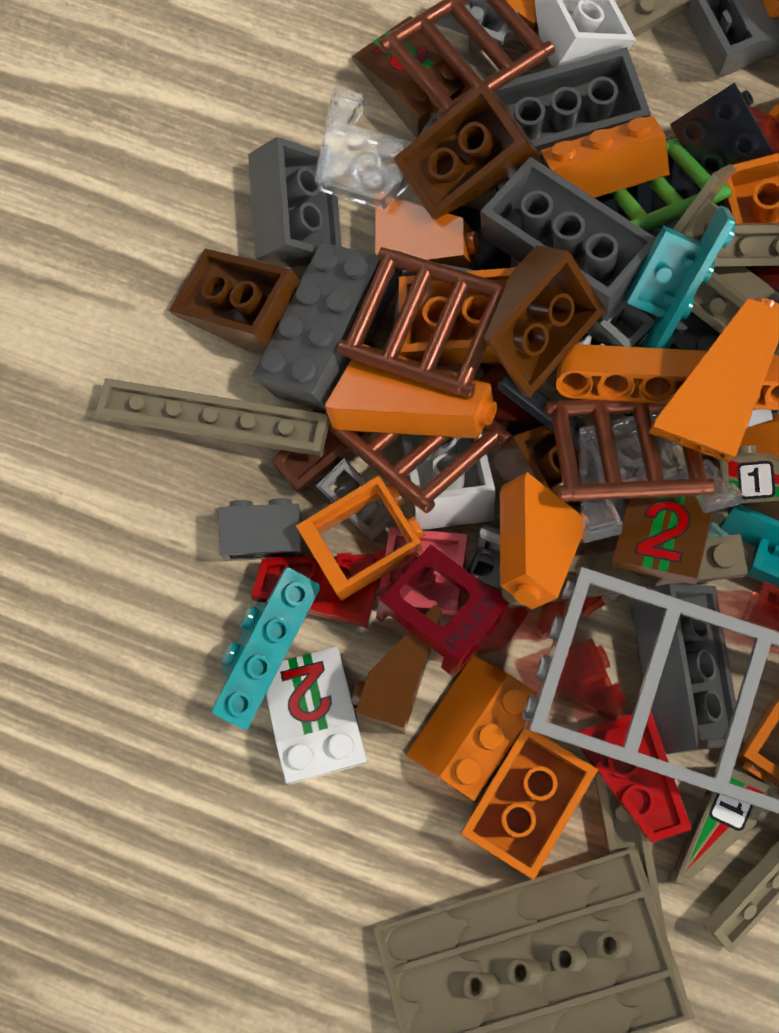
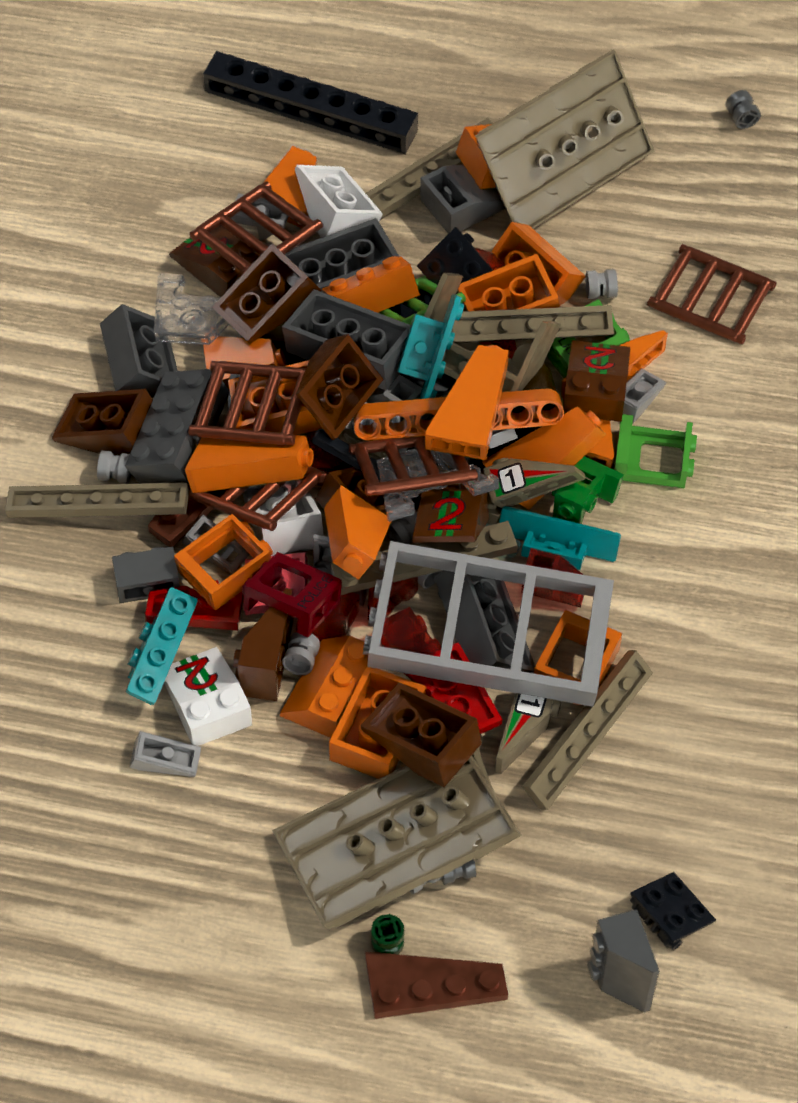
camera: 15 degrees left, 20 degrees down
(238, 366) = (113, 467): none -> light grey wheel
(253, 795) = (164, 755): none -> light grey slope
(439, 686) = (300, 654): none -> light grey wheel
(584, 846) = (424, 733): none -> reddish brown slope

